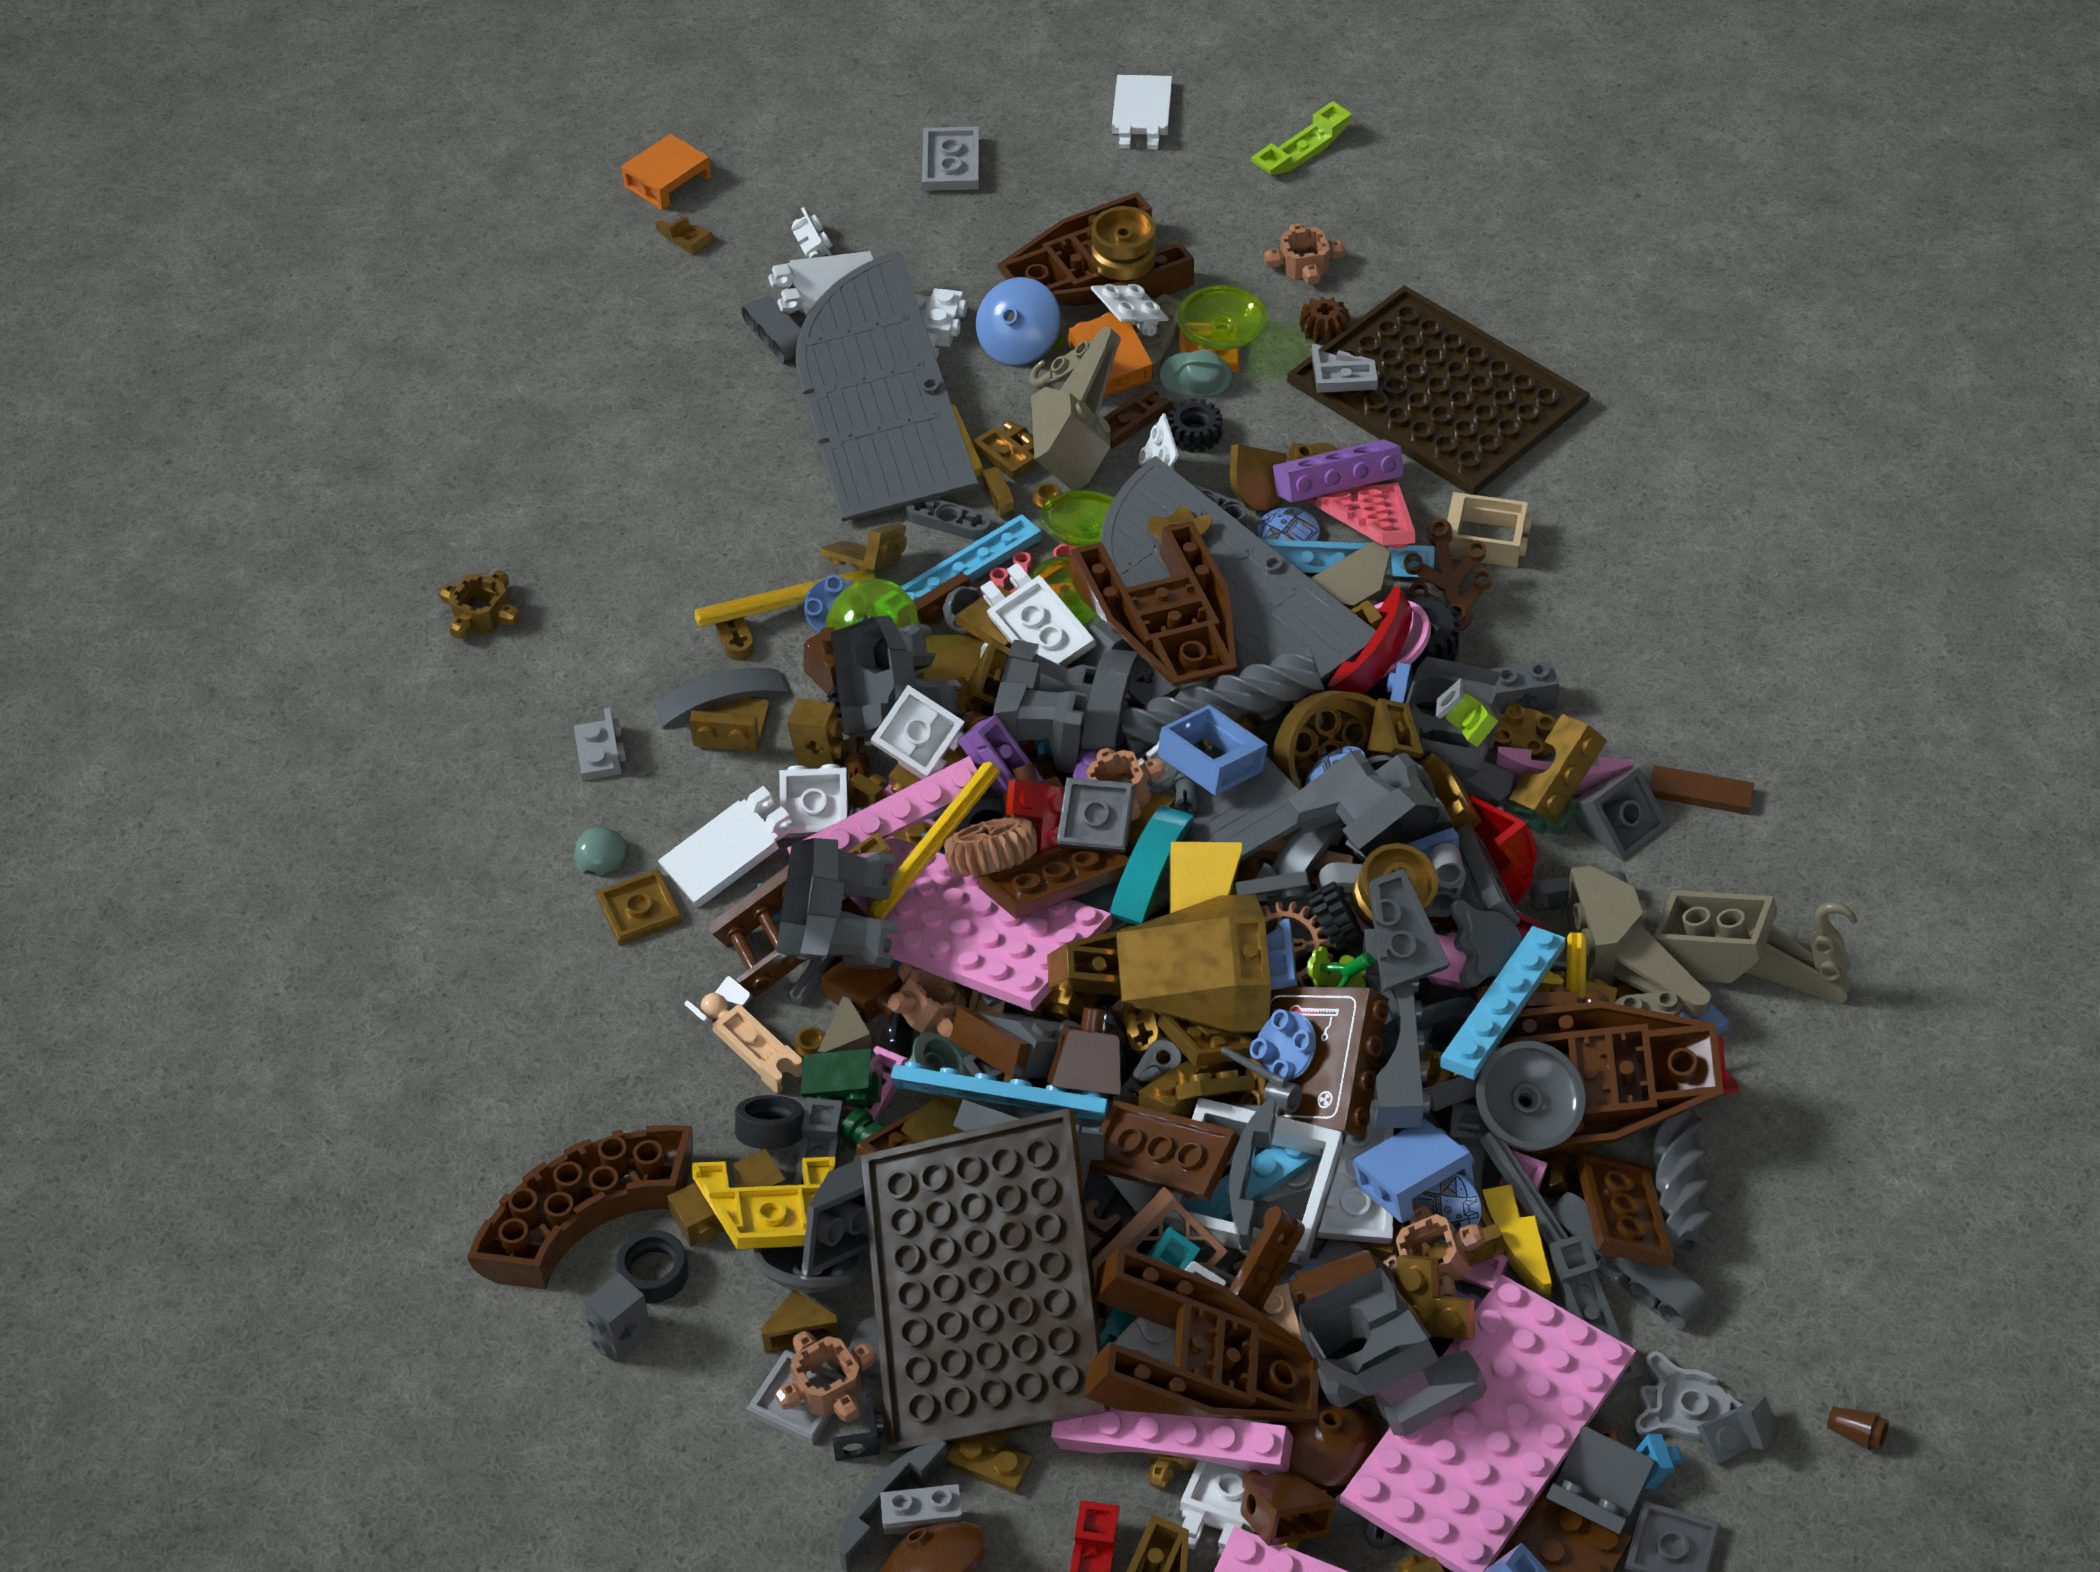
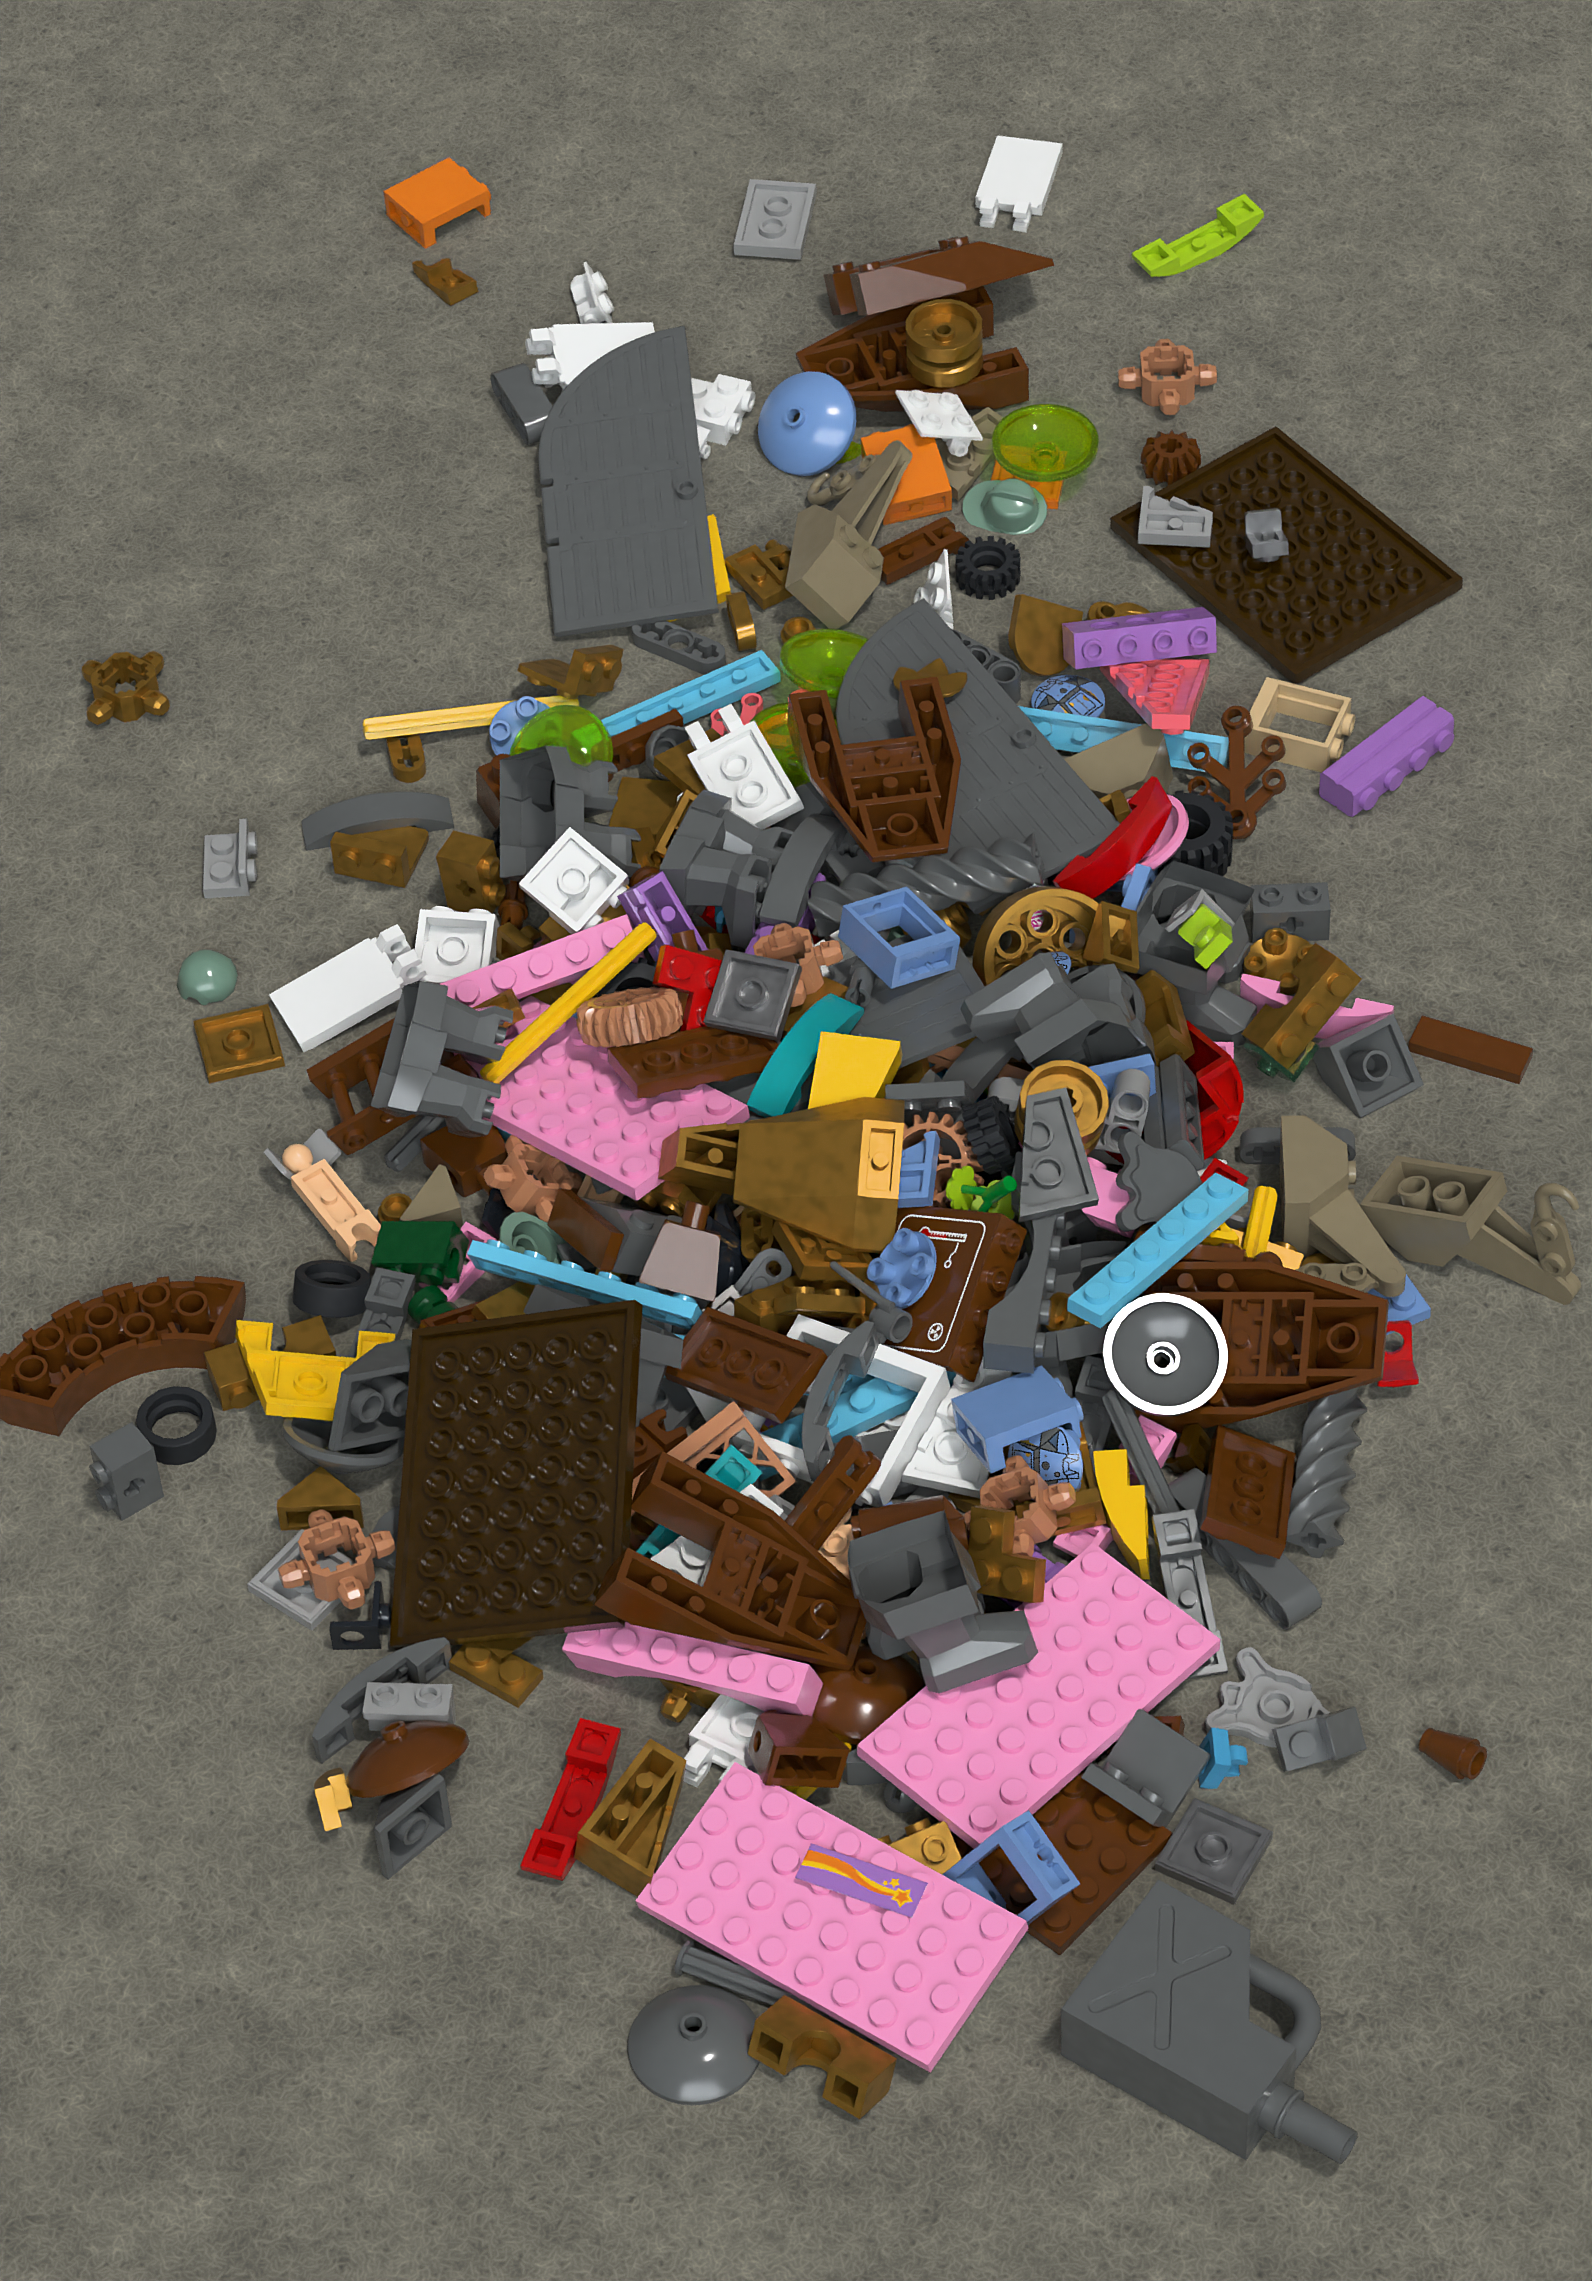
camera: 10 degrees right, 0 degrees up
(1090, 190) = (925, 275): none -> reddish brown wedge
(1421, 375) = (1265, 535): none -> flat silver bracket
(1567, 548) = (1387, 757): none -> medium lavender brick

